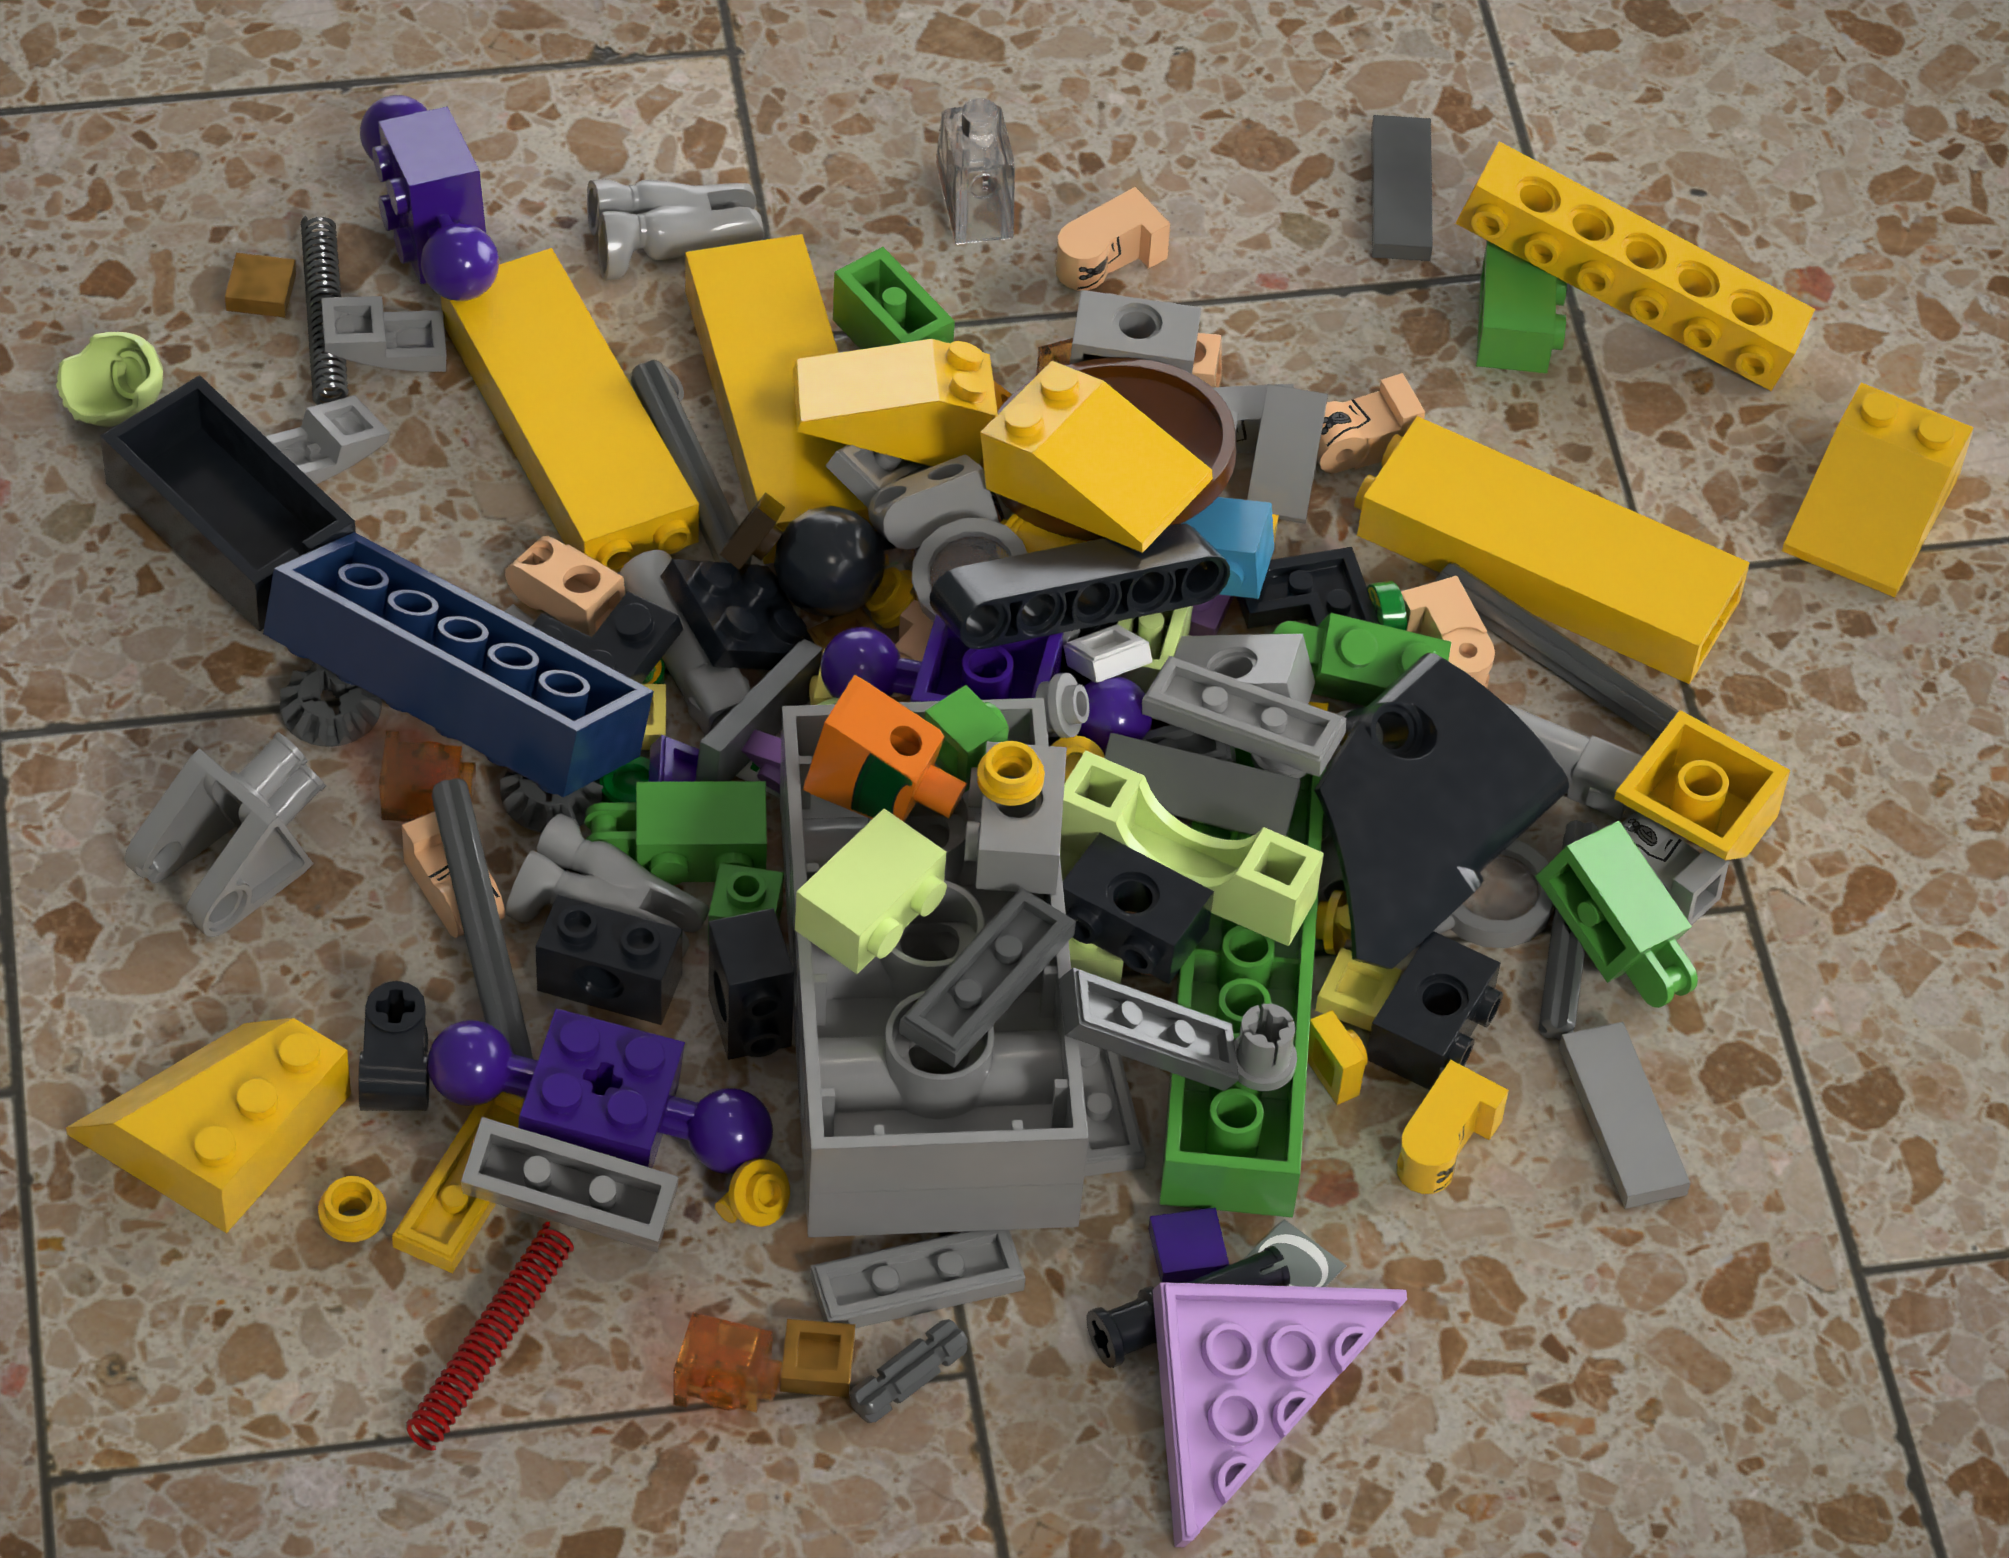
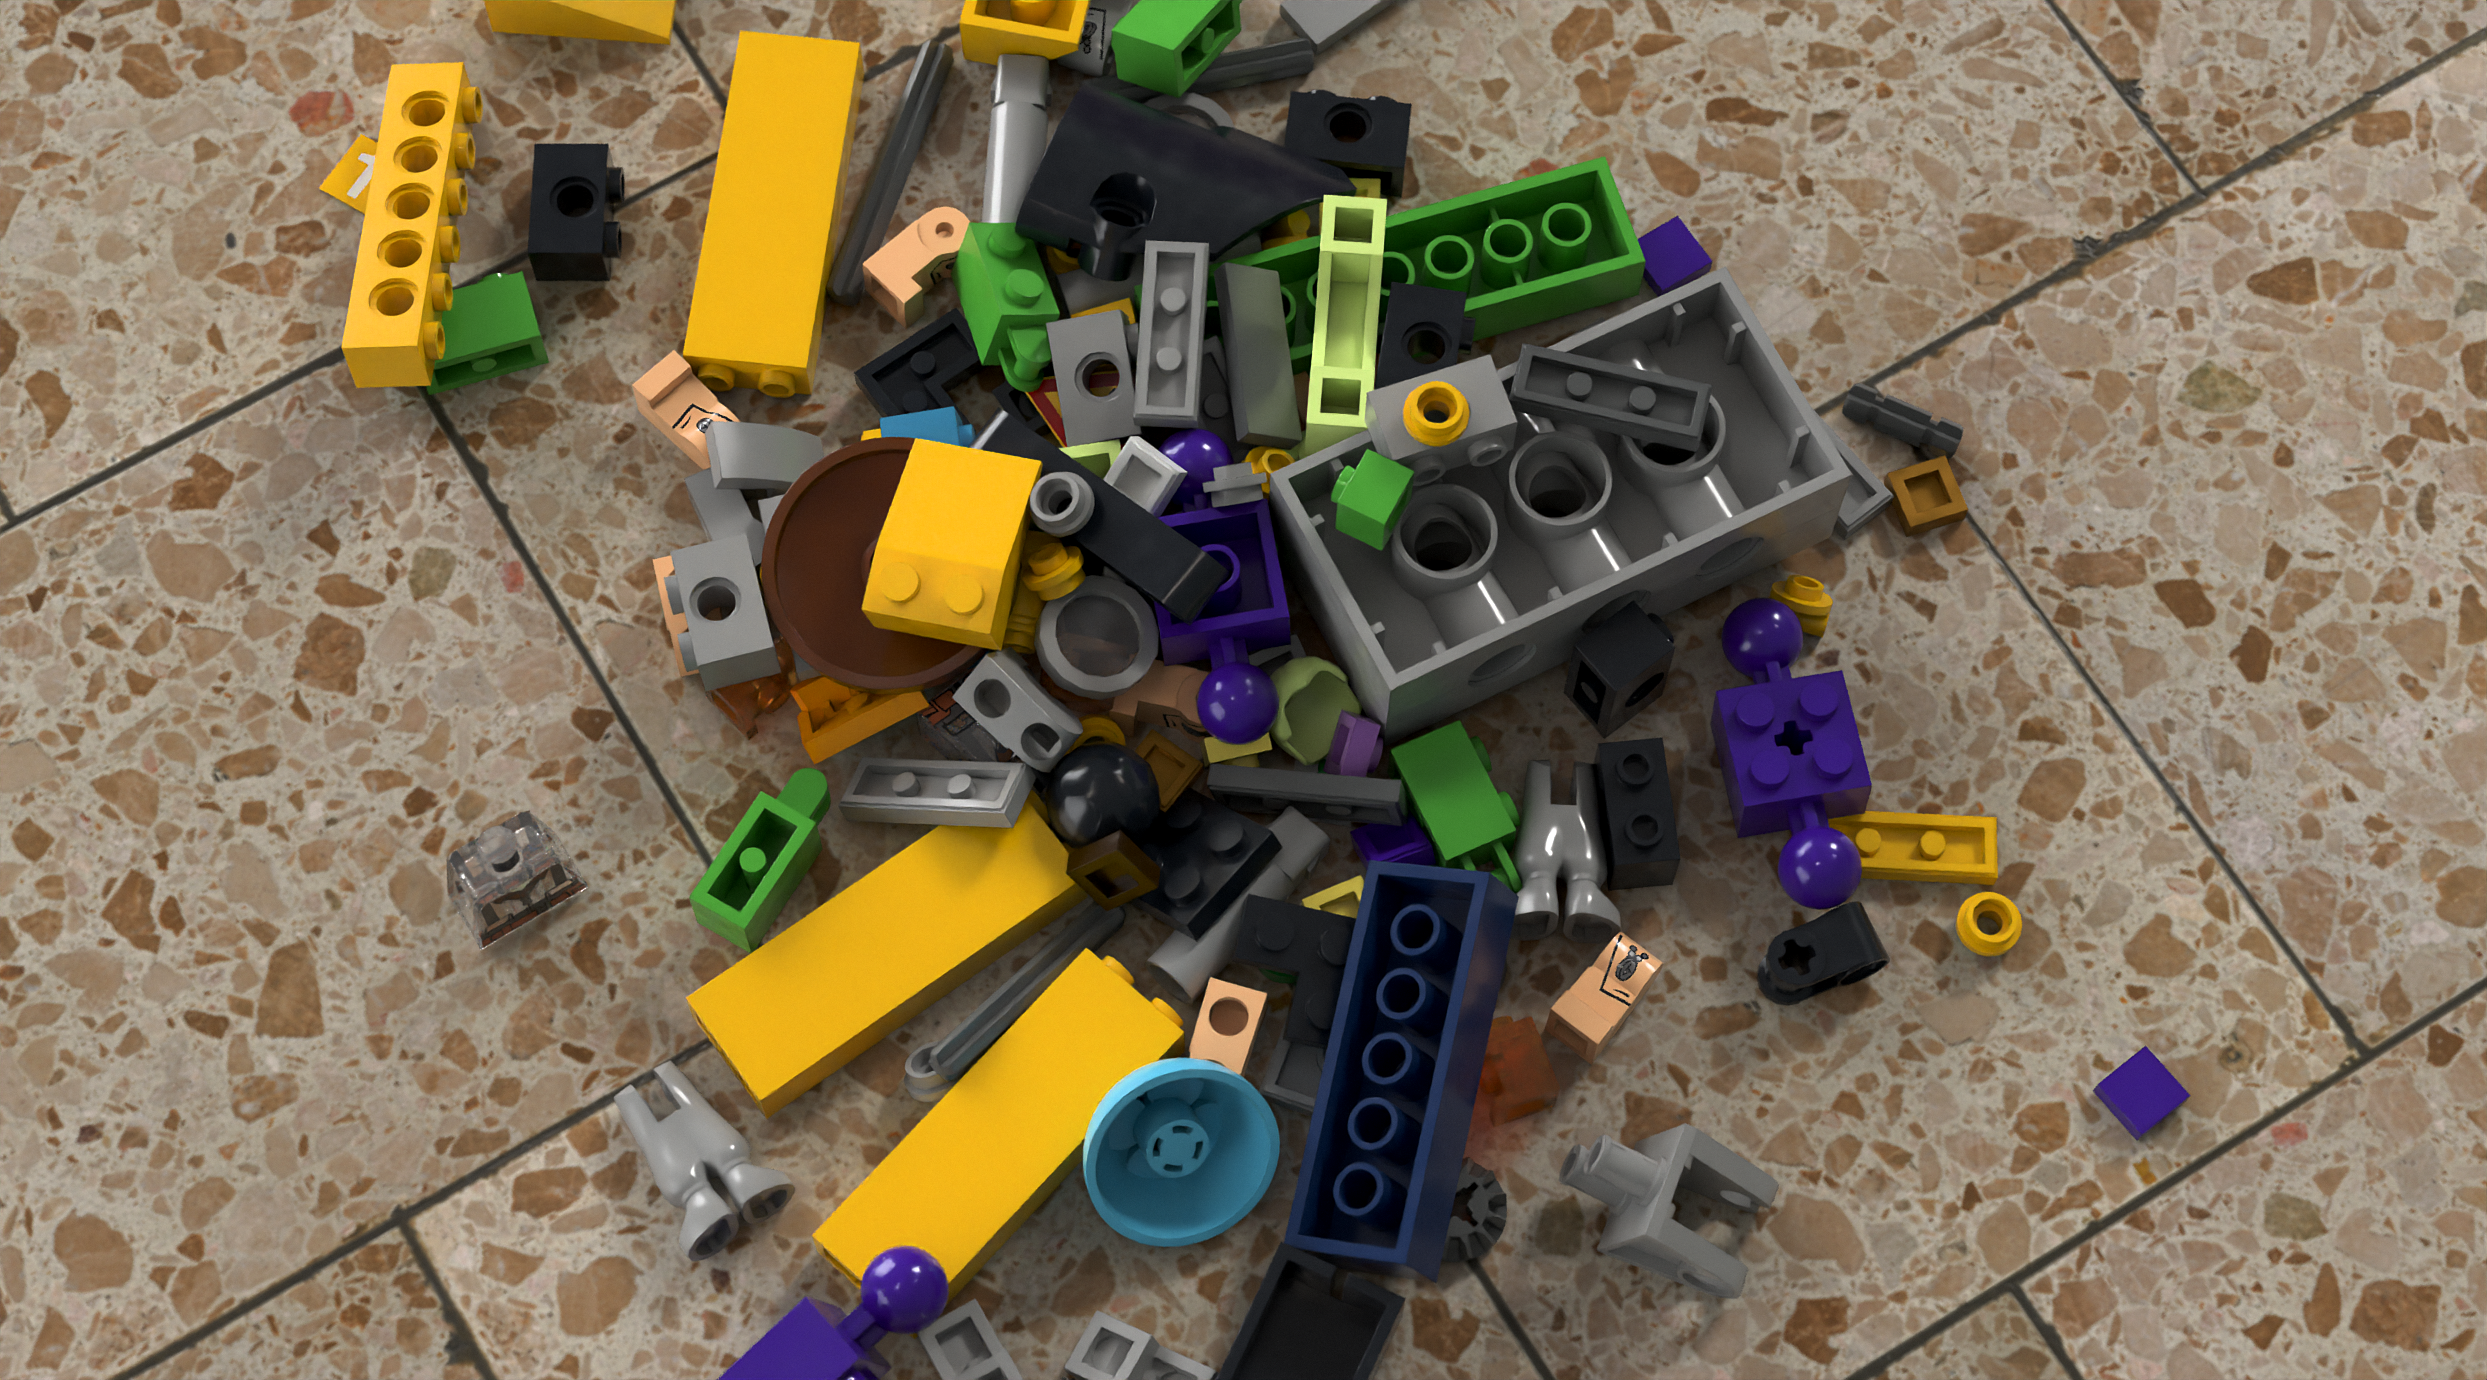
camera: 110 degrees left, 15 degrees up
(121, 1263) = (2141, 1093): none -> dark purple tile
(224, 1117) = (1960, 1077): yellow wedge -> none
(475, 1345) = (2057, 745): red piece -> none
(479, 913) = (1666, 927): dark grey axle -> none
(482, 491) = (1179, 1152): none -> medium azure piece
(569, 1184) = (1903, 730): light grey brick -> none
(725, 1365) = (1986, 553): clear orange brick -> none
(744, 891) = (1509, 747): bright green plate -> none
(871, 892) = (1584, 511): yellowish green brick -> none
(880, 757) = (1454, 536): orange torso -> none
(899, 399) = (900, 793): yellow slope -> none
(1037, 534) = (1054, 571): none -> yellow plate
(1089, 535) = (1050, 492): none -> light grey plate
(1110, 239) = (540, 731): light nougat leg -> none
(1133, 1324) = (1752, 247): black pin -> none
(1148, 1029) = (1565, 281): dark grey tile -> none
(1243, 1372) = (1776, 168): lavender tile -> none
(1261, 1042) = (1509, 211): light grey bush -> none
(1306, 1260) = (1639, 179): light grey sticker -> none
(1336, 1057) = (1440, 186): yellow plate -> none
(1388, 604) = (914, 316): green tile -> none
(1401, 188) = (343, 495): dark grey tile -> none
(1444, 1122) = (1461, 101): yellow leg -> none
(1614, 406) = (566, 180): none -> black brick

